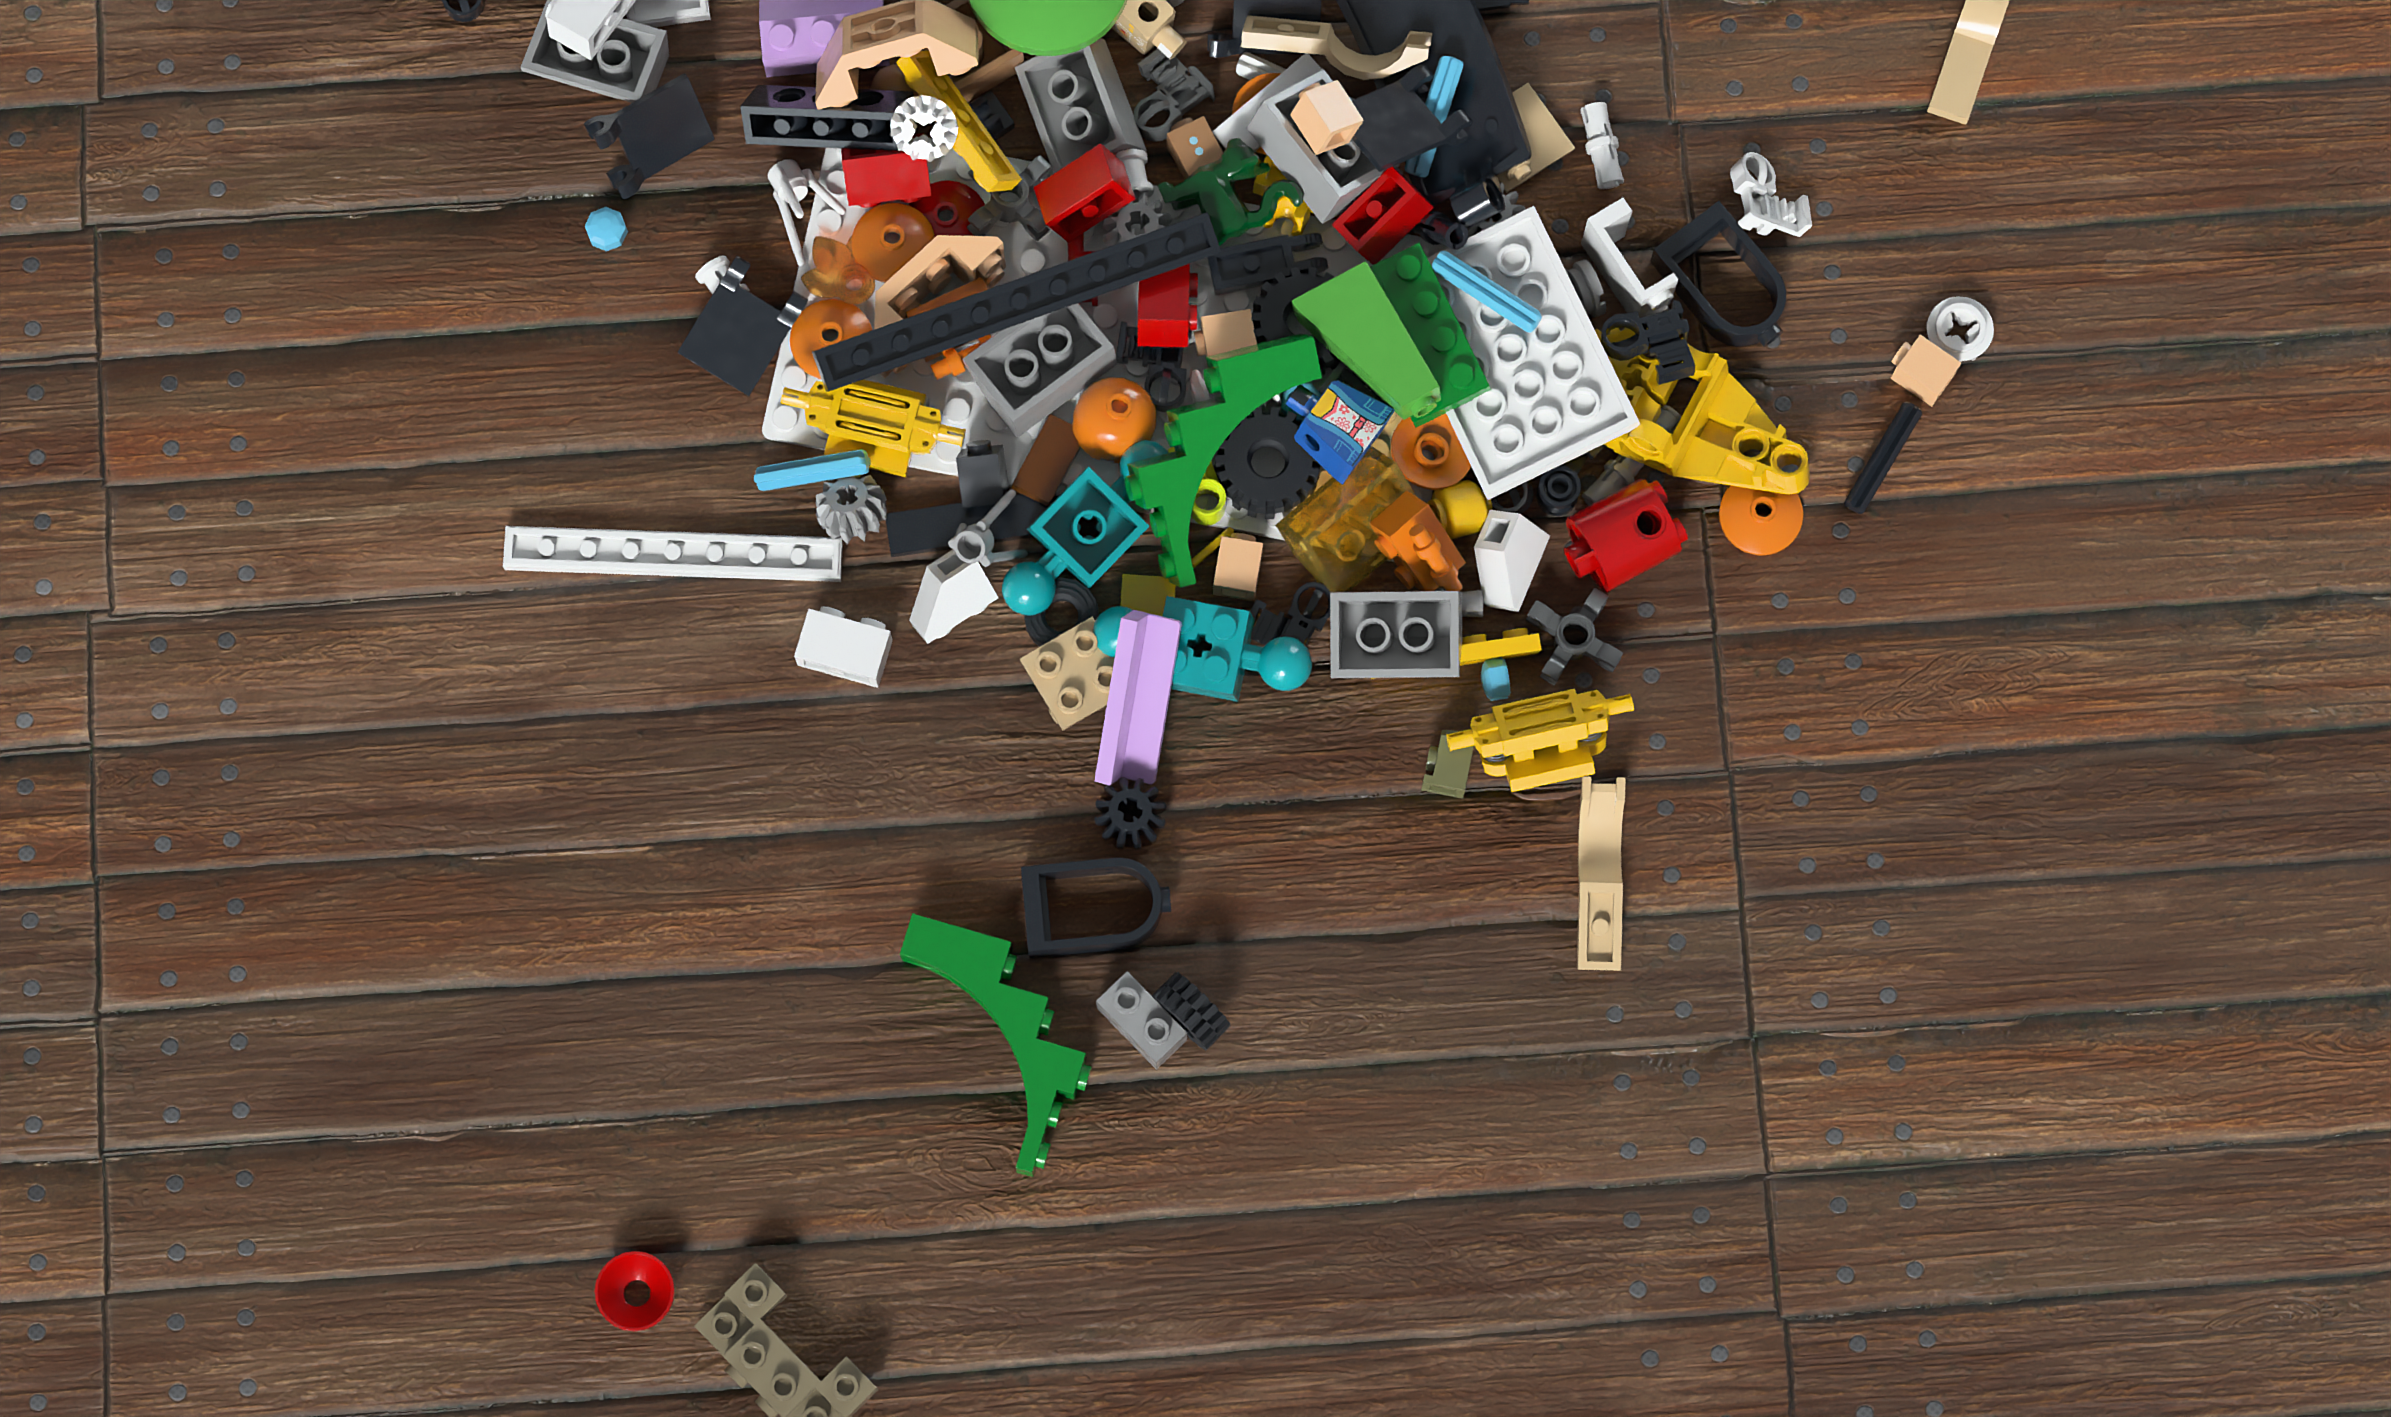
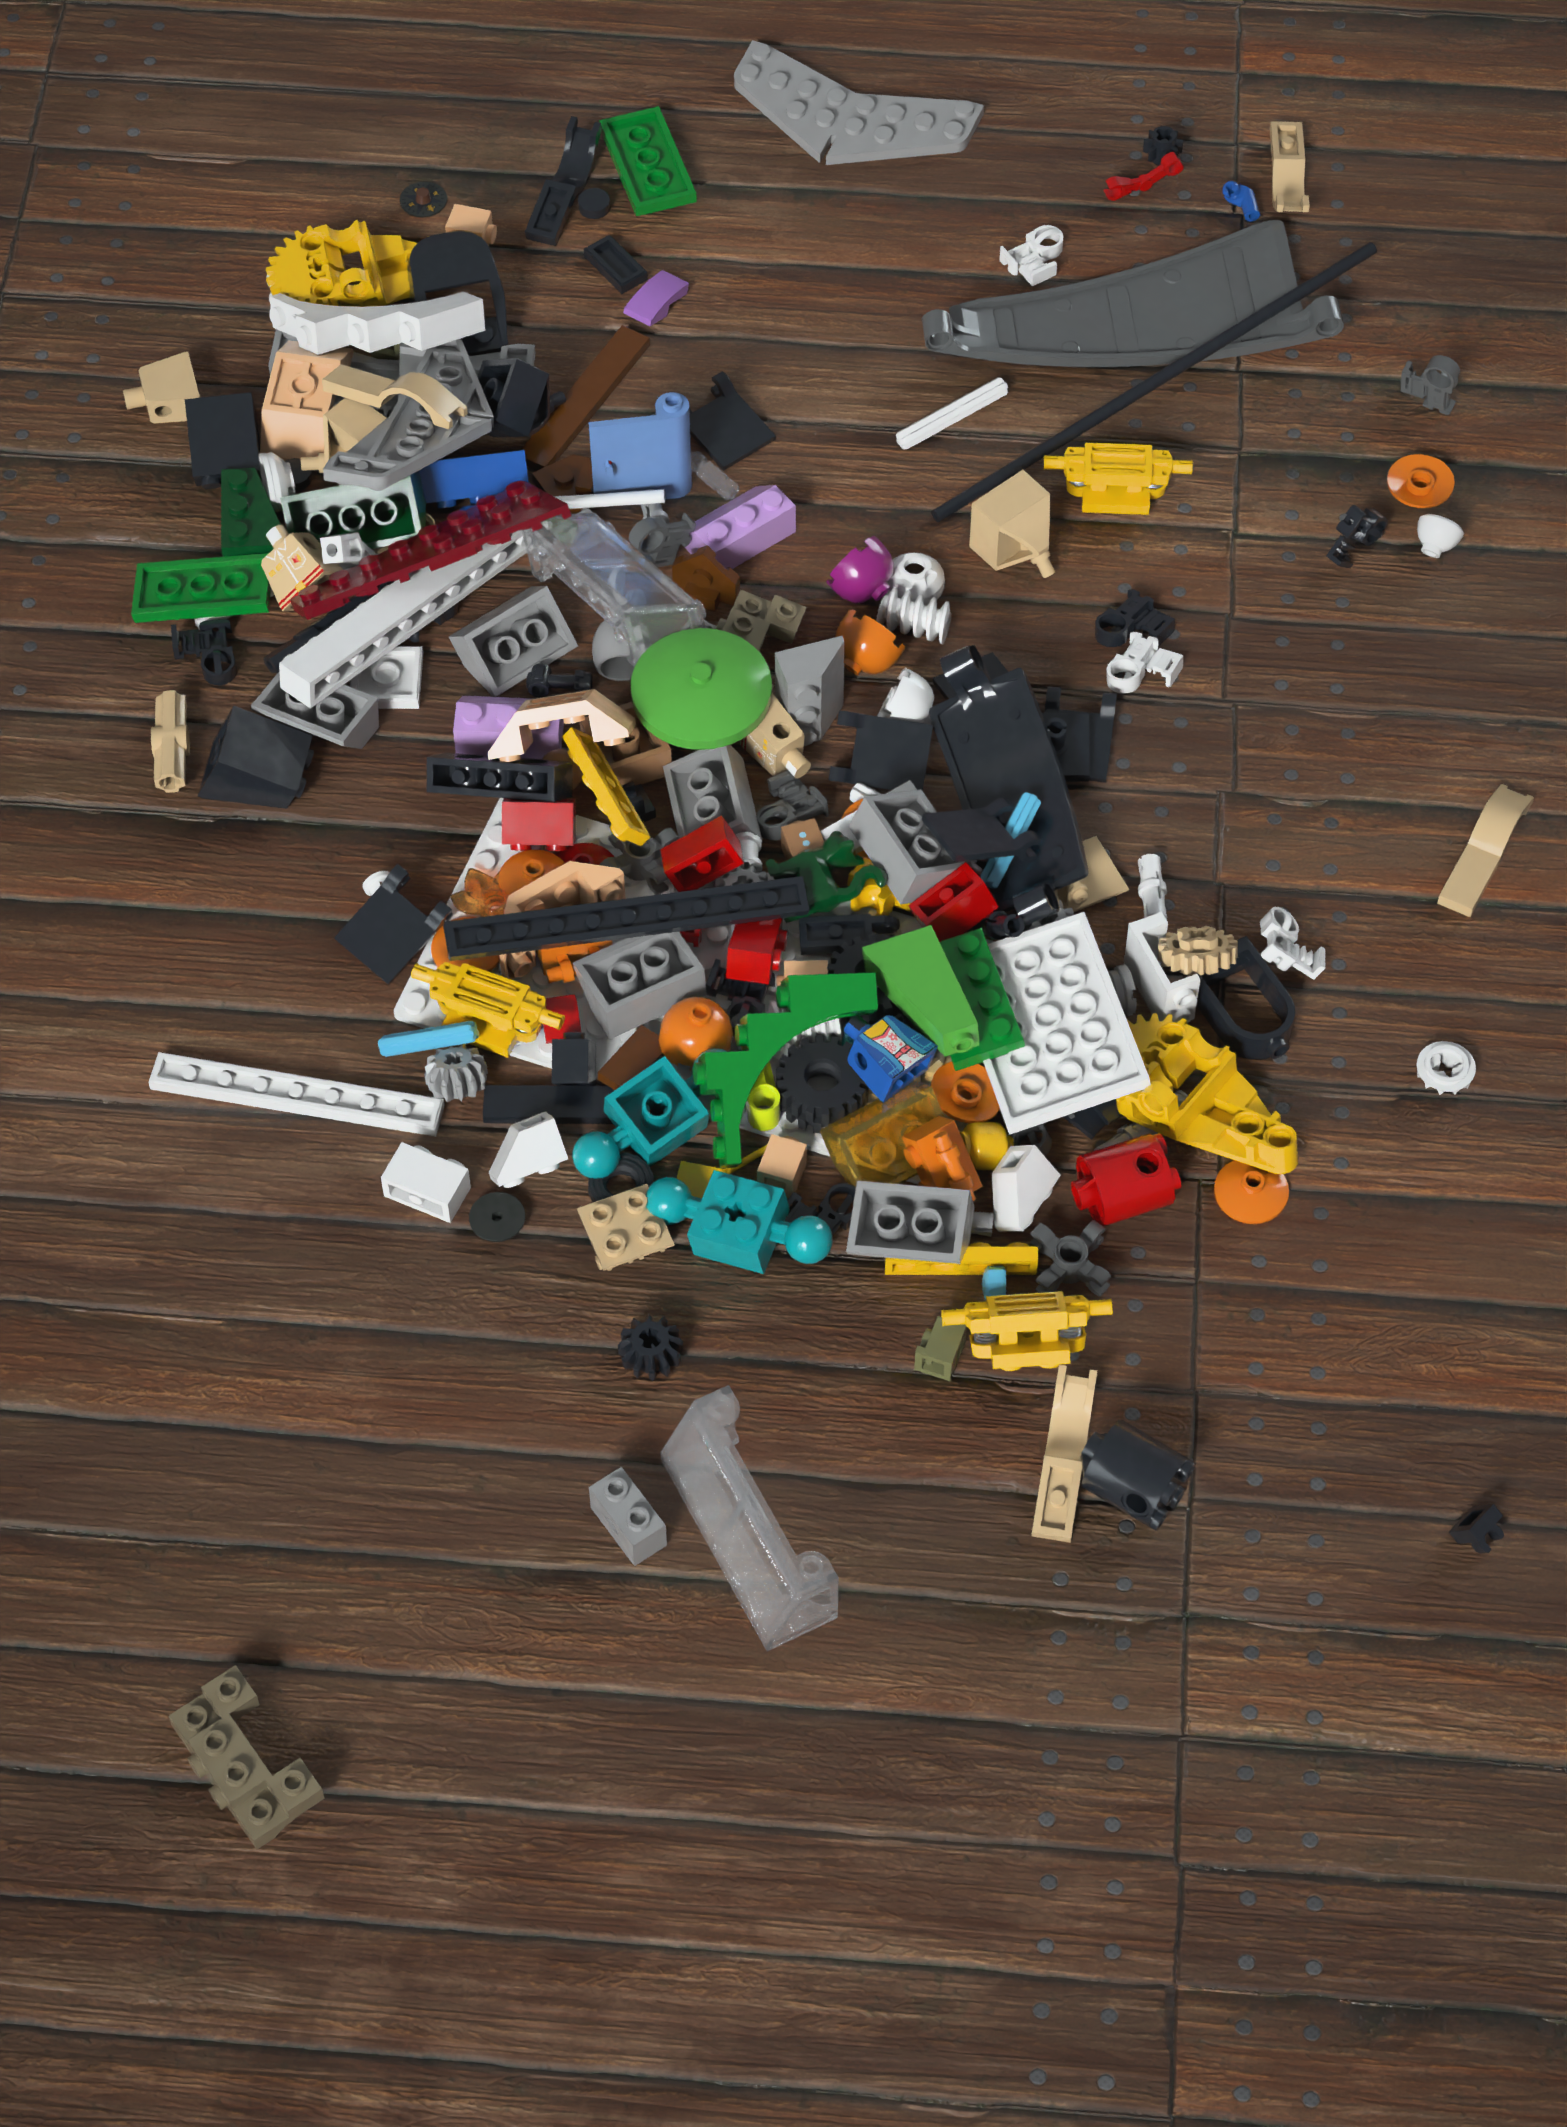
camera: 10 degrees right, 20 degrees down
(429, 113) = (170, 741): none -> tan piece
(535, 130) = (256, 761): none -> black slope
(606, 228) = (296, 844): medium azure tile -> none
(615, 1279) = (120, 1661): red piece -> none
(652, 133) = (352, 771): black flag -> none
(791, 187) = (458, 831): white plant -> none
(924, 110) = (590, 785): white gear -> none
(930, 676) = (497, 1217): none -> pearl dark grey piece
(962, 414) = (567, 1006): none -> red slope
(977, 541) = (557, 1101): light grey plant -> none
(978, 967) = (494, 1455): green arch -> none
(1037, 908) = (606, 1386): black window -> none
(1138, 698) = (673, 1246): lavender panel -> none
(1192, 1010) = (676, 1510): black tyre -> none
(1265, 1018) = (774, 1586): none -> clear windscreen
(1320, 39) = (927, 773): tan piece -> none
(1326, 116) = (915, 813): light nougat brick -> none
(1486, 291) = (1033, 969): medium azure axle -> none
(1554, 497) = (1073, 1139): black wheel -> none
(1663, 339) = (1180, 1021): black piece -> none
(1669, 238) = (1197, 950): none -> tan gear
(1681, 890) = (1135, 1473): none -> black cylinder
(1883, 457) = (1365, 1158): black axle -> none
(1924, 369) = (1410, 1092): light nougat brick -> none
(2052, 889) = (1476, 1525): none -> black tile

